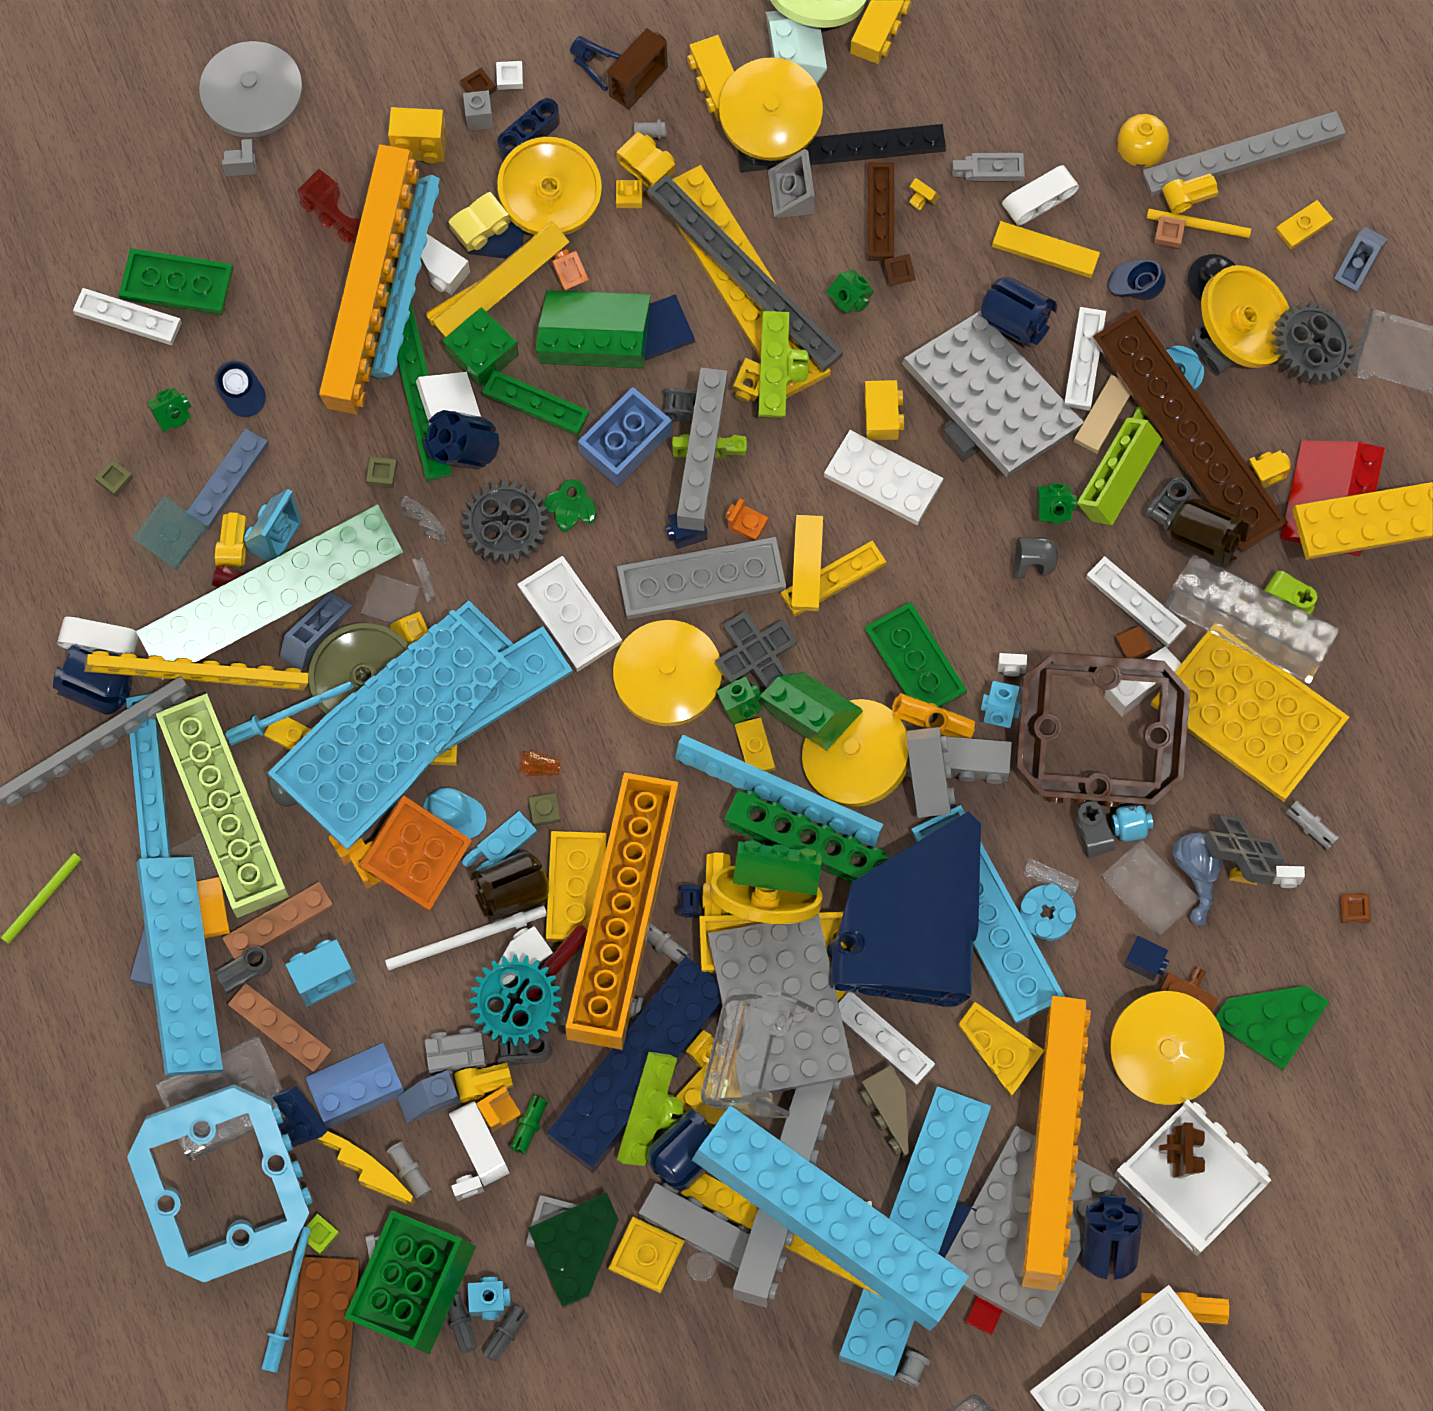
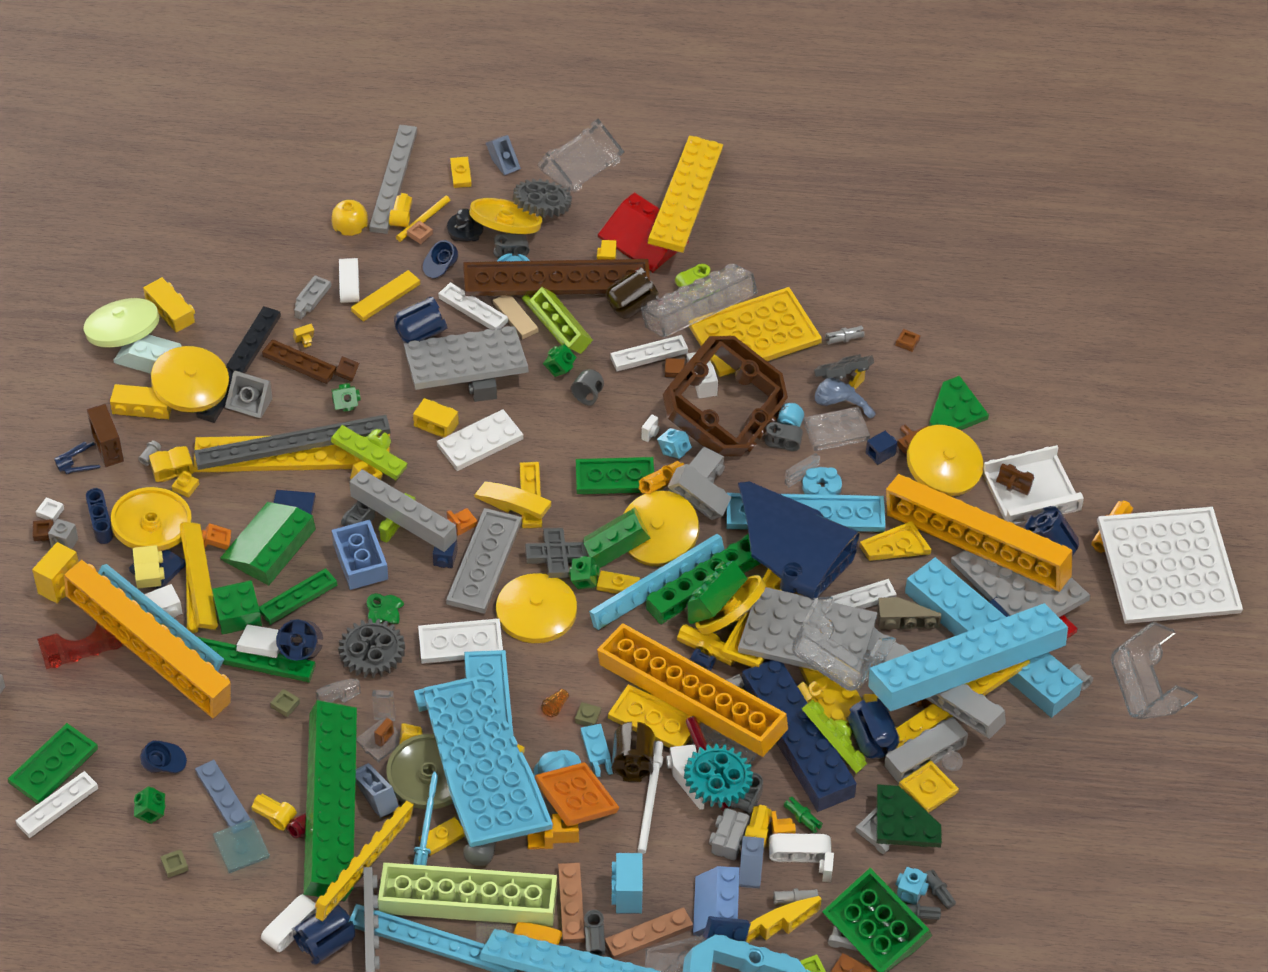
camera: 65 degrees left, 20 degrees down
(274, 527) = (284, 773): medium azure slope -> none
(392, 599) = (384, 732): none -> dark orange tile
(1166, 504) = (597, 308): dark grey piece -> none
(1288, 876) = (873, 350): white plate -> none

